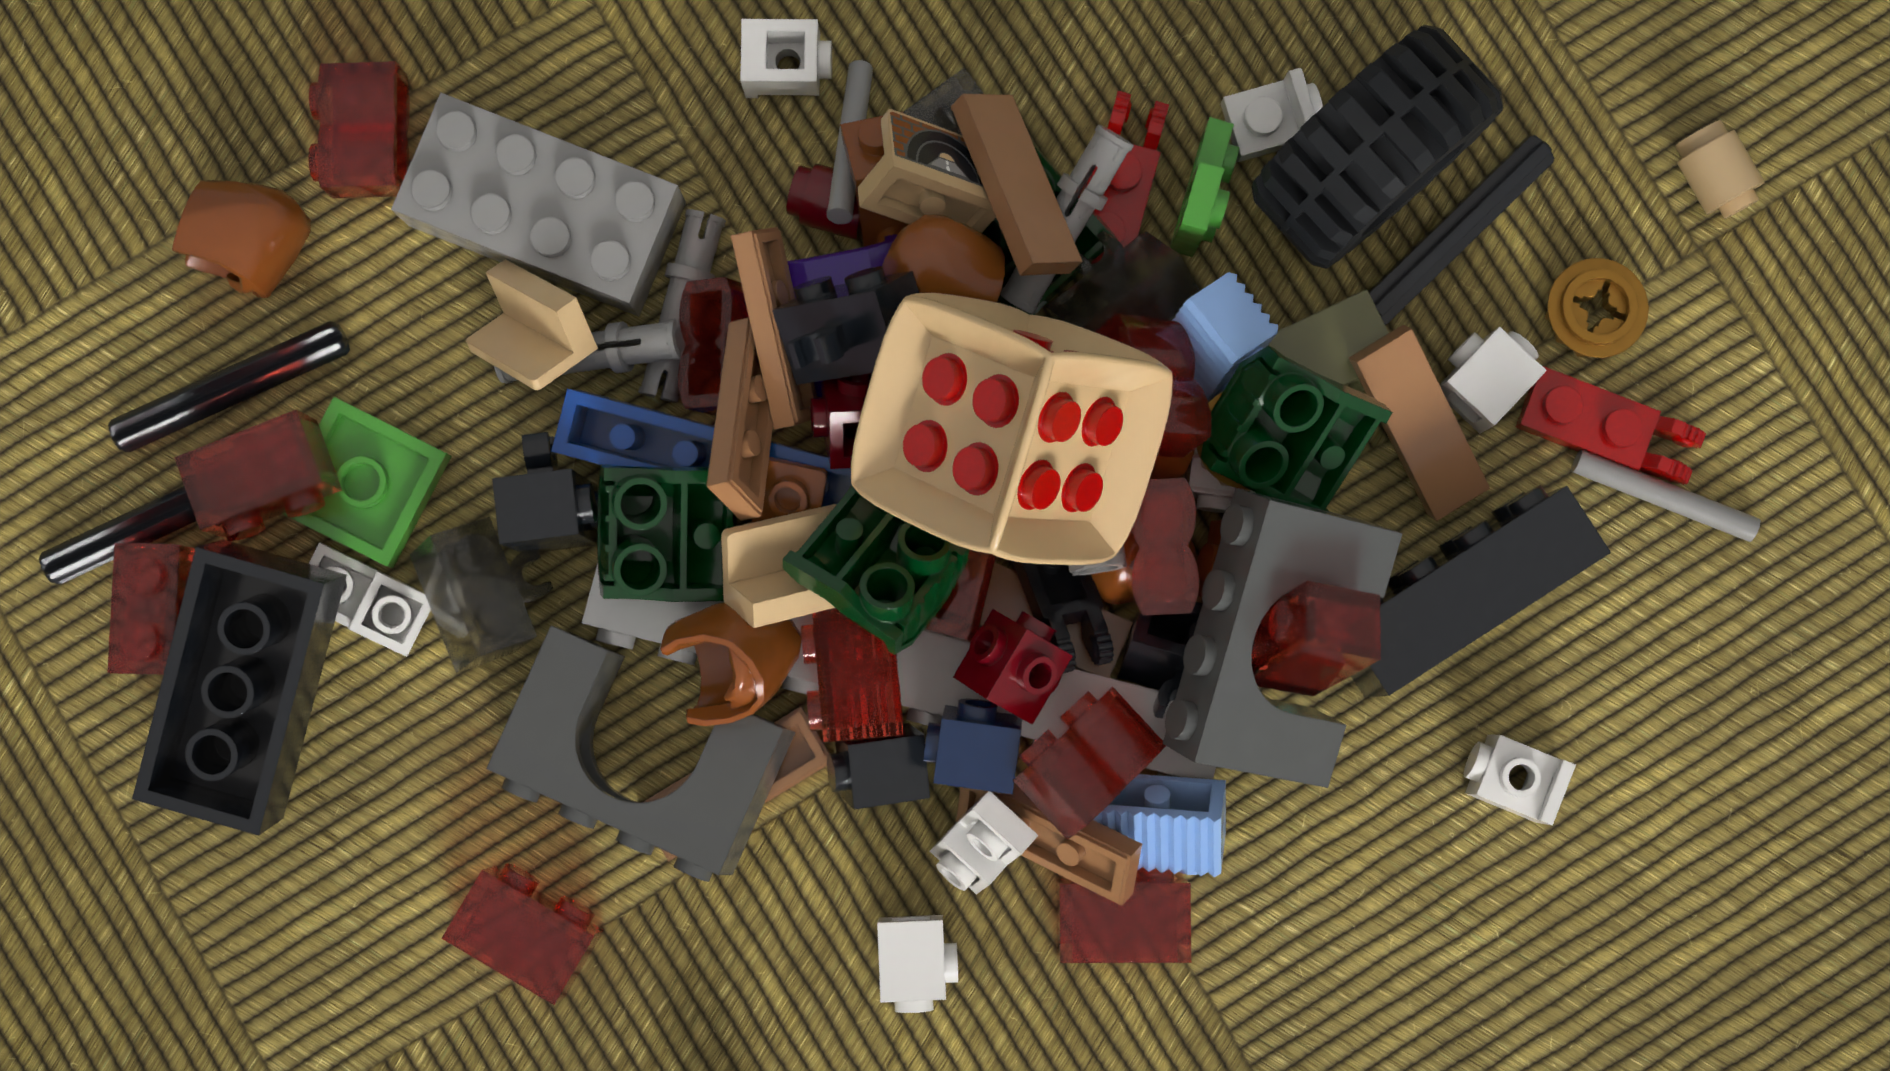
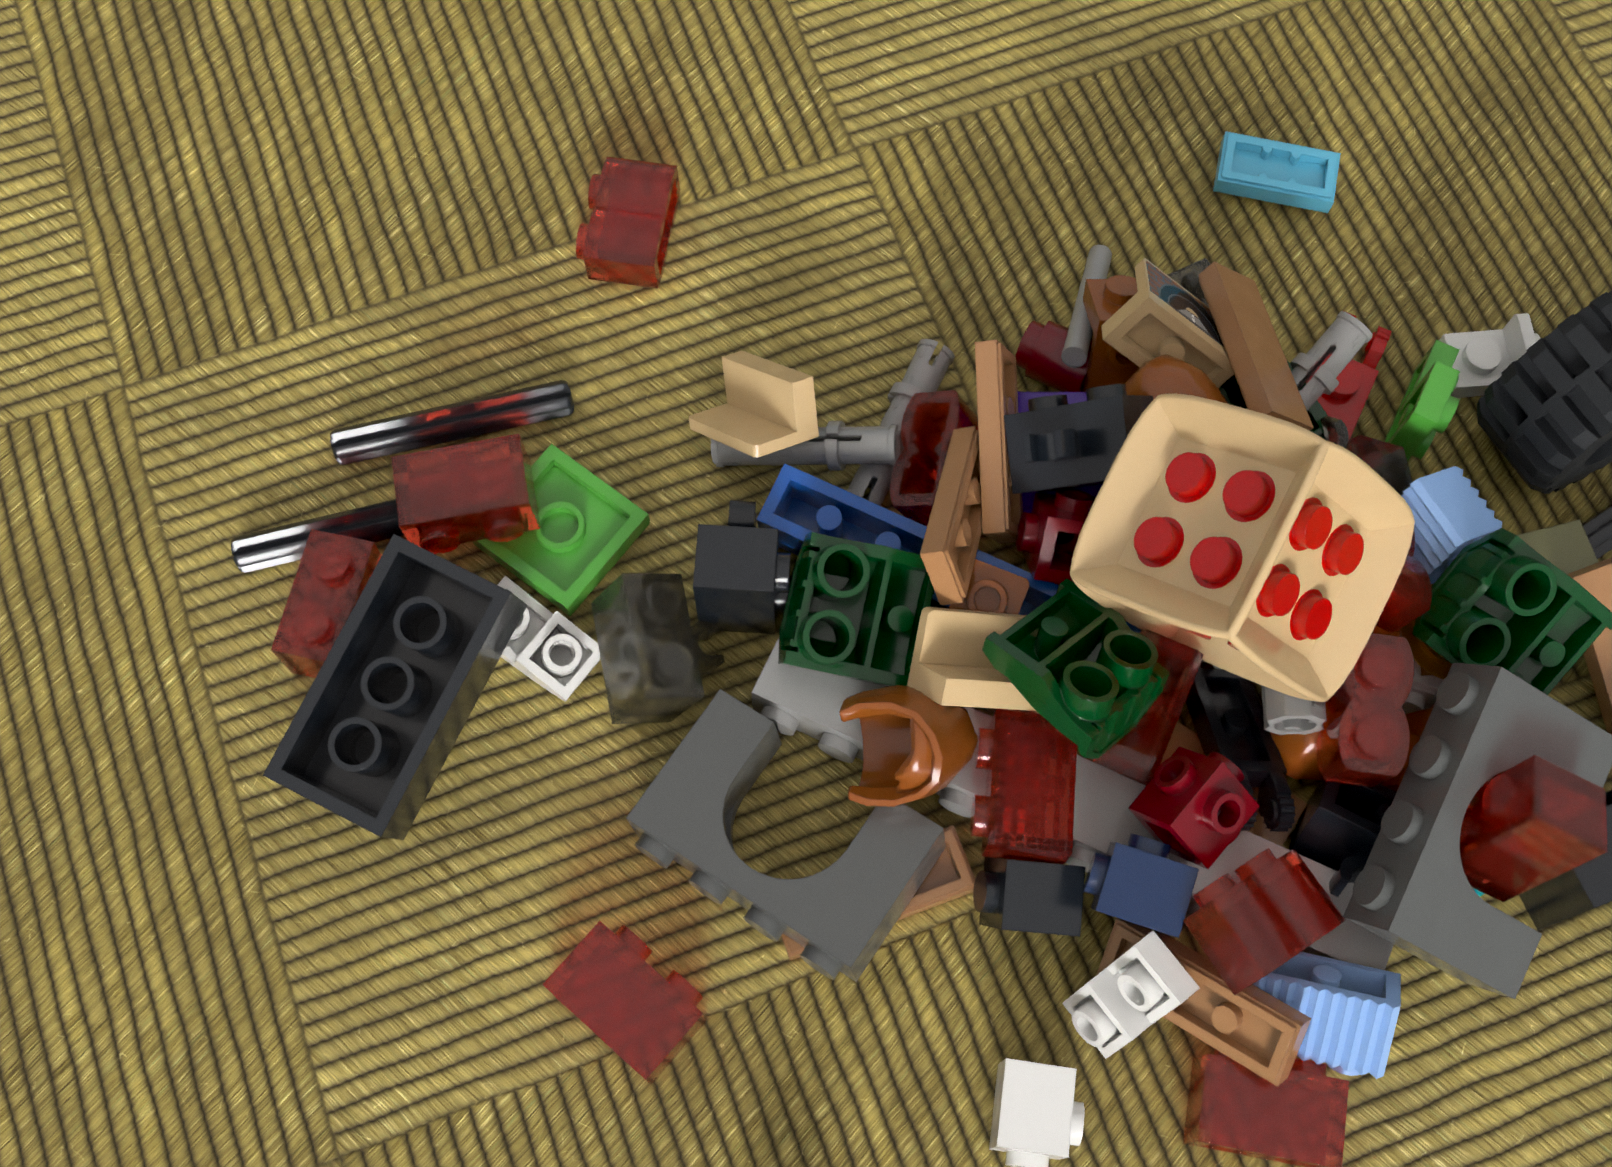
camera: 10 degrees right, 15 degrees down
(242, 233) = (499, 286): dark orange piece -> none
(539, 204) = (766, 293): light grey brick -> none
(770, 40) = (1033, 227): white brick -> none

